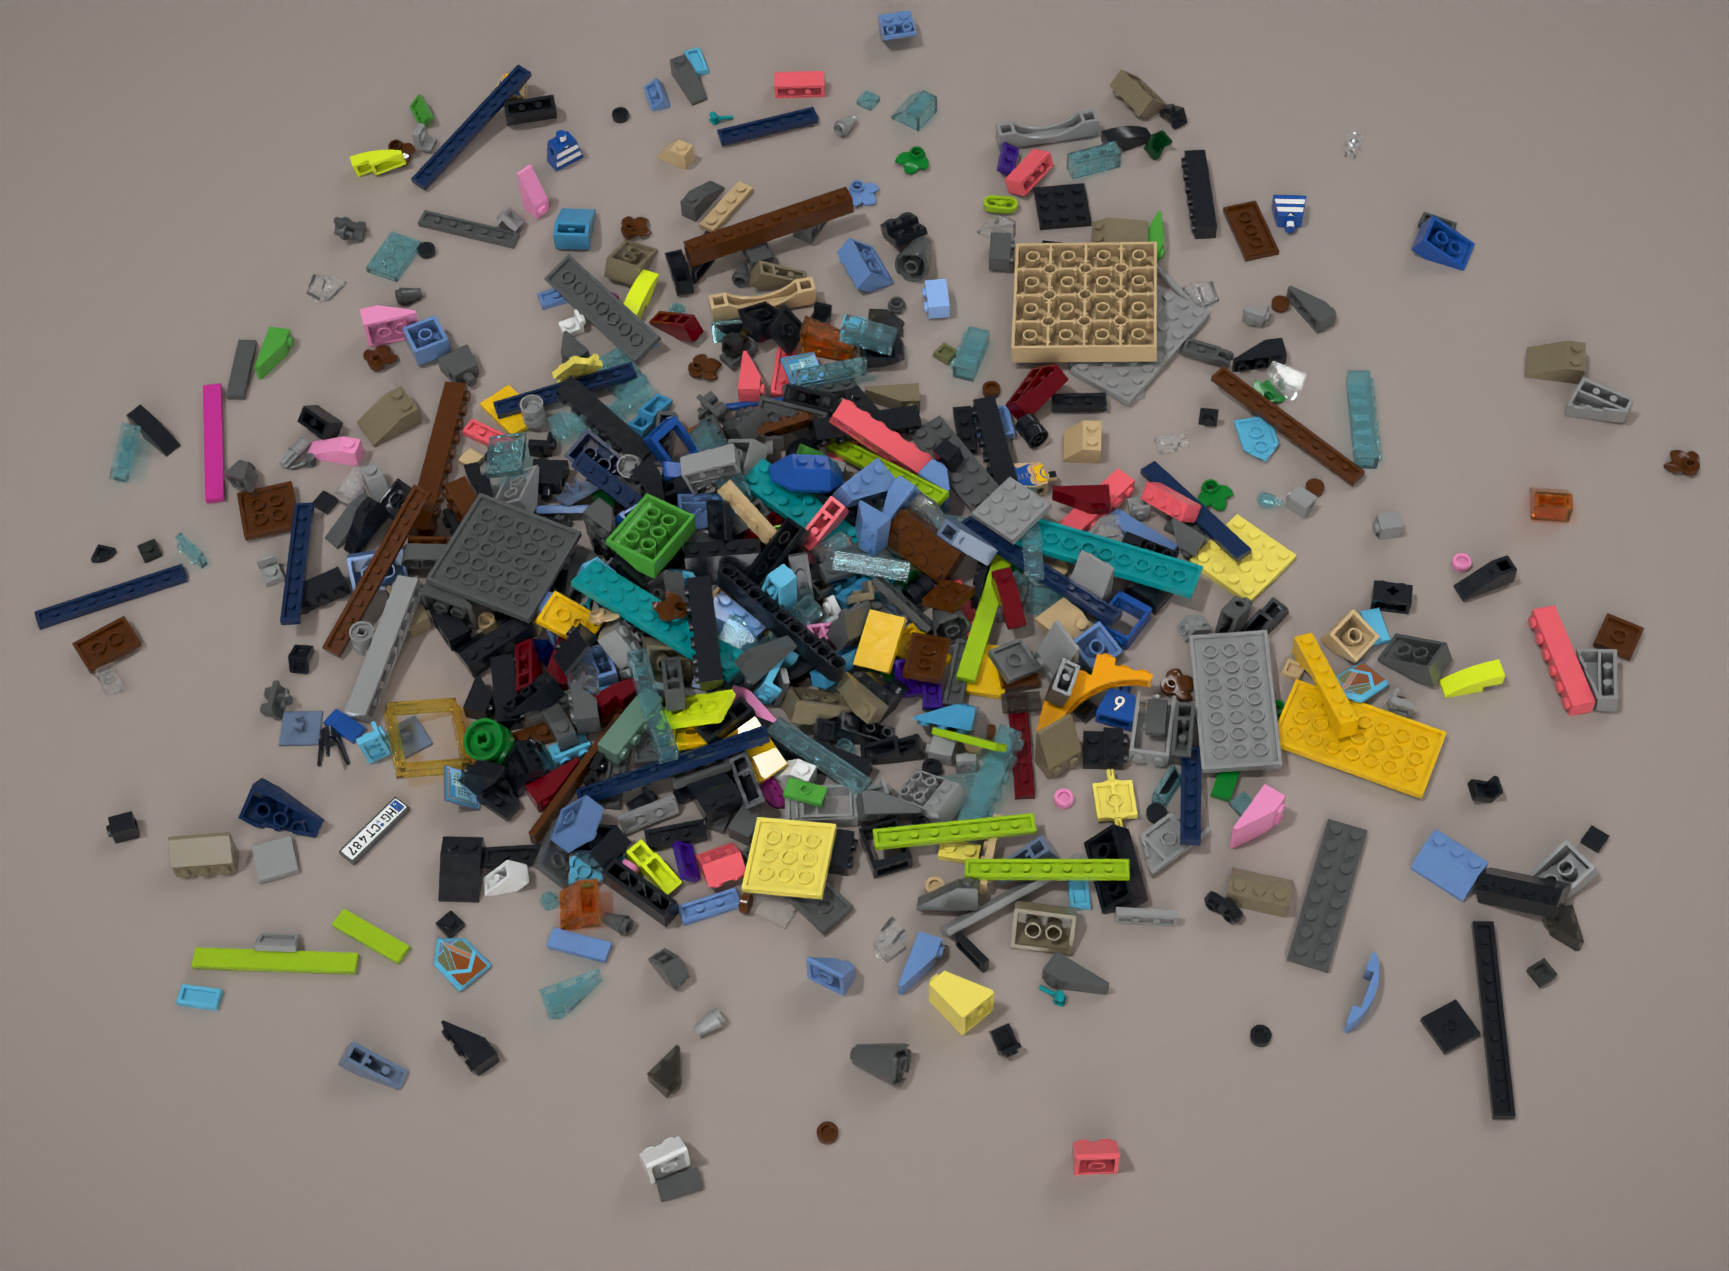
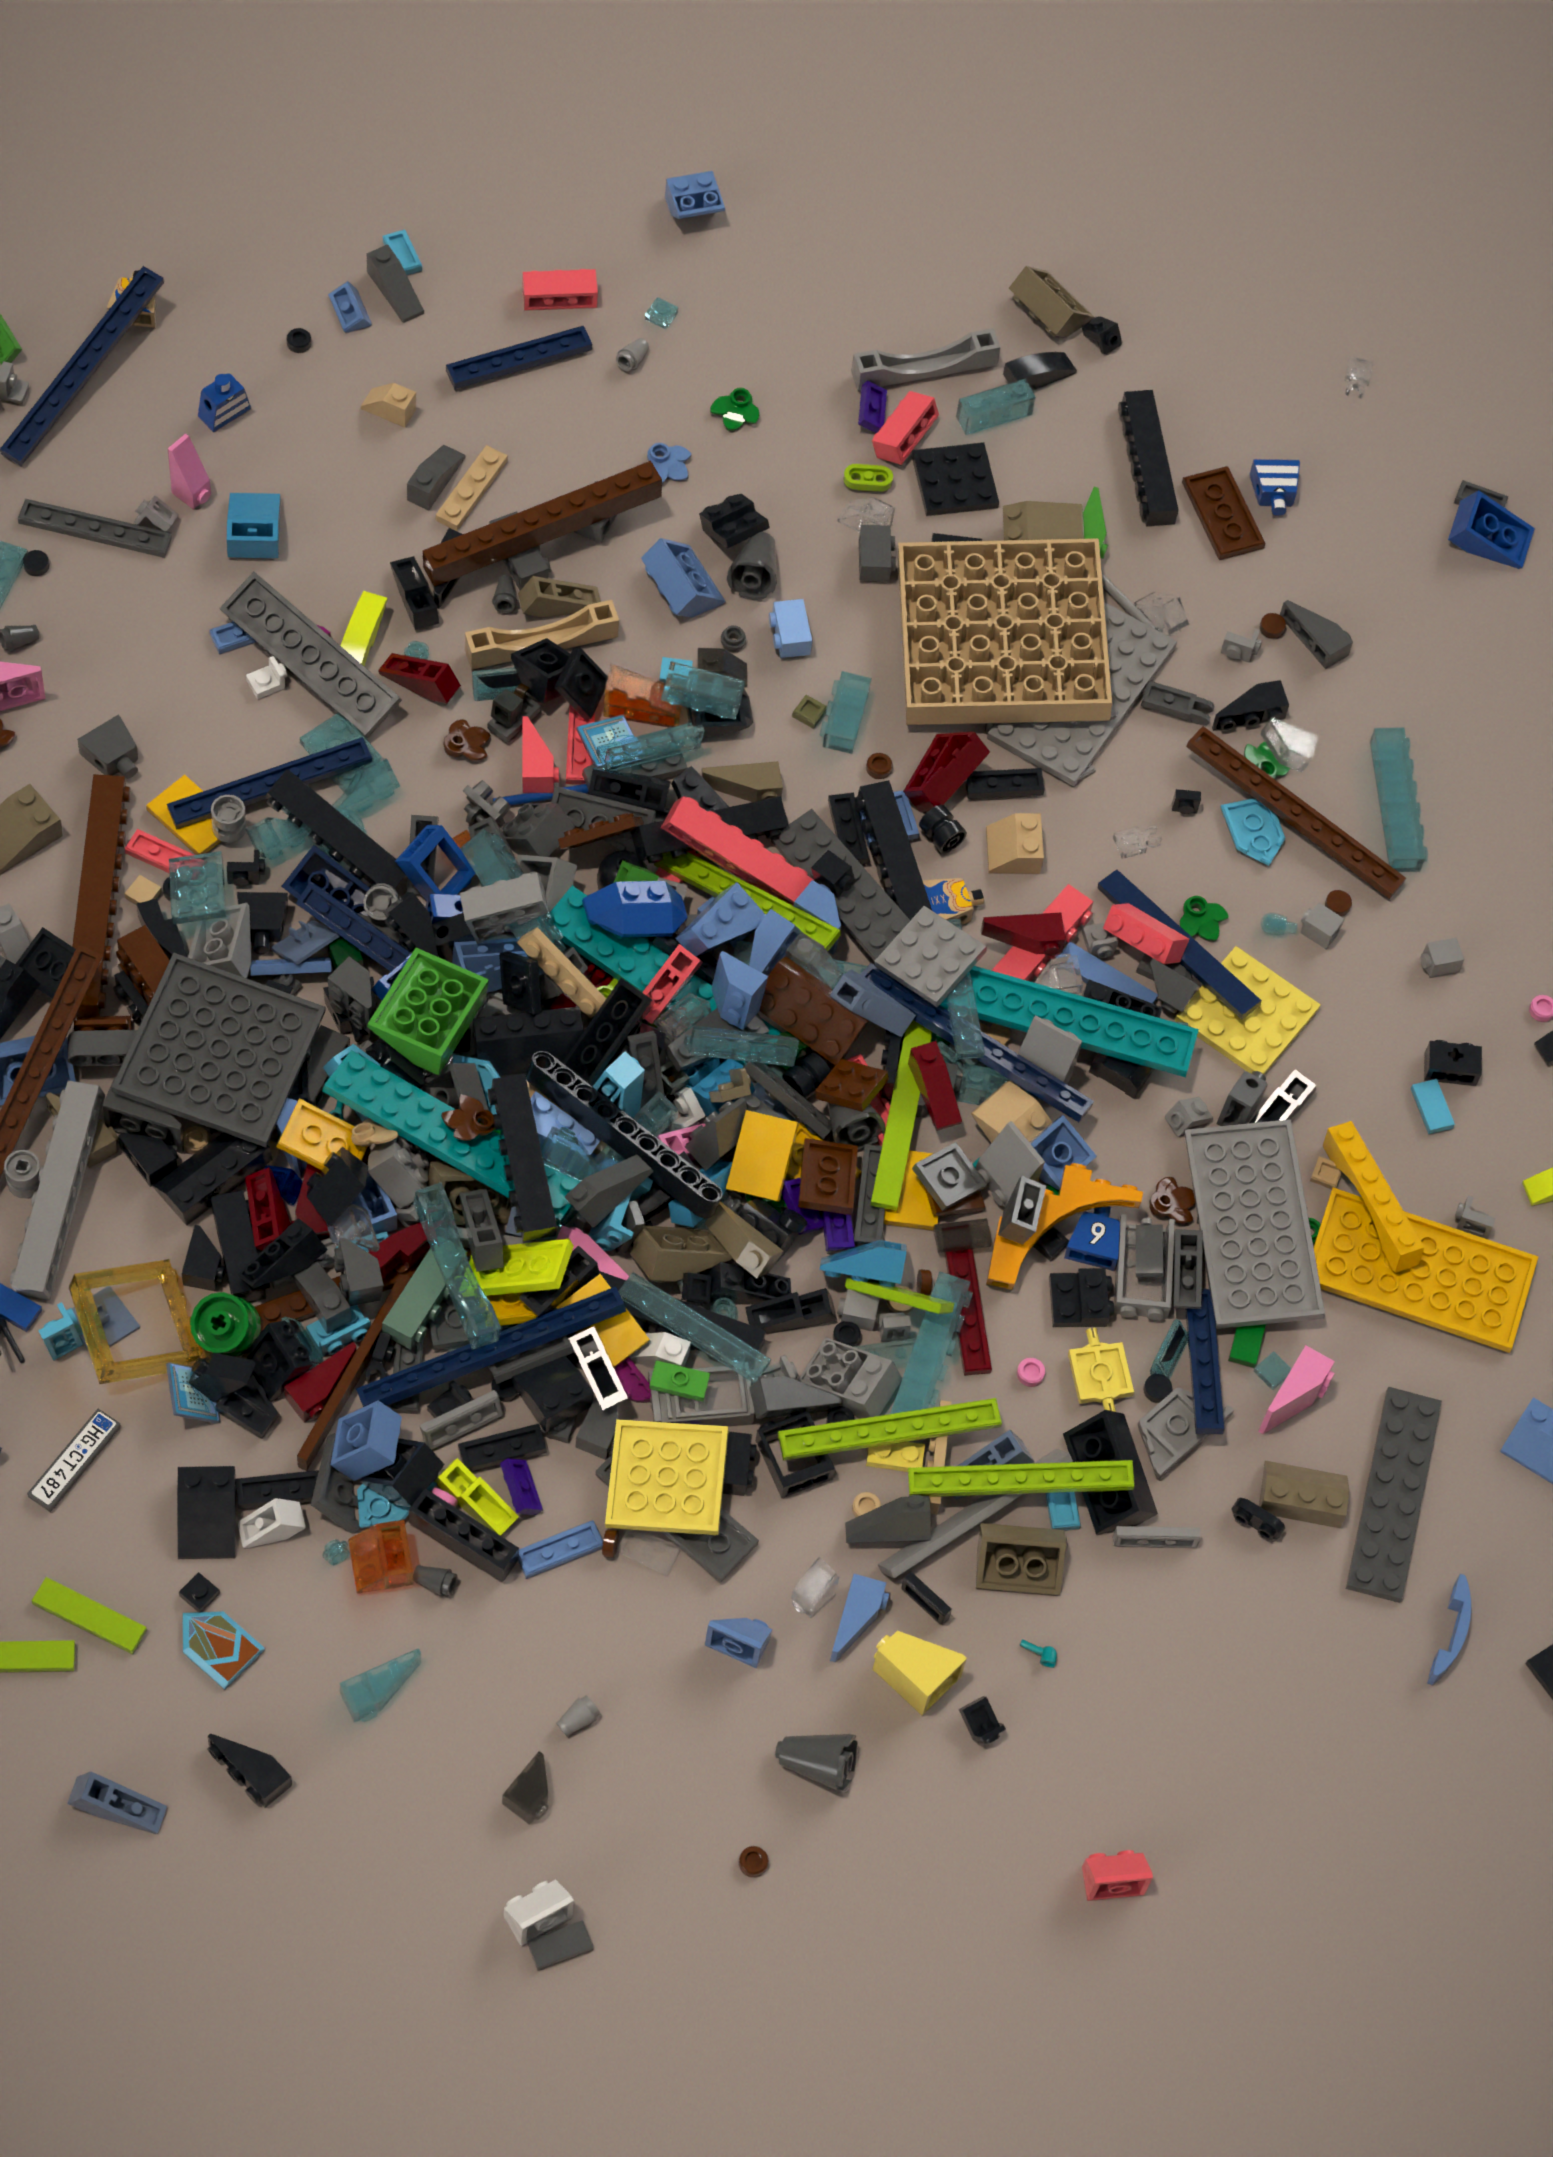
camera: 15 degrees left, 5 degrees up
(426, 340) = (57, 709): medium blue brick -> none
(530, 110) = (166, 336): black brick -> none
(572, 347) = (275, 723): dark grey slope -> none
(577, 367) = (286, 750): light yellow plate -> none
(579, 945) = (384, 1614): medium blue tile -> none
(628, 262) = (340, 578): dark tan slope -> none
(633, 227) = (341, 521): reddish brown plate -> none
(647, 414) = (396, 817): dark azure slope -> none
(669, 967) = (514, 1640): dark grey slope -> none
(715, 119) = (441, 346): teal hand -> none
(721, 865) = (570, 1488): coral slope -> none
(775, 443) = (580, 856): light grey bracket -> none
(822, 312) = (628, 654): black bracket -> none
(916, 110) = (733, 328): clear light blue slope -> none
(1057, 747) = (1020, 1302): dark tan slope -> none
(1070, 976) = (1060, 1625): dark grey slope -> none
(1133, 607) = (1106, 1091): blue window -> none
(1156, 144) = (1082, 380): dark green bracket -> none
(1260, 1035) = (1318, 1695): black tile -> none
(1350, 636) = (1401, 1123): tan slope -> none
(1361, 682) = (1420, 1188): tile -> none
(1416, 658) = (1491, 1150): dark grey slope -> none

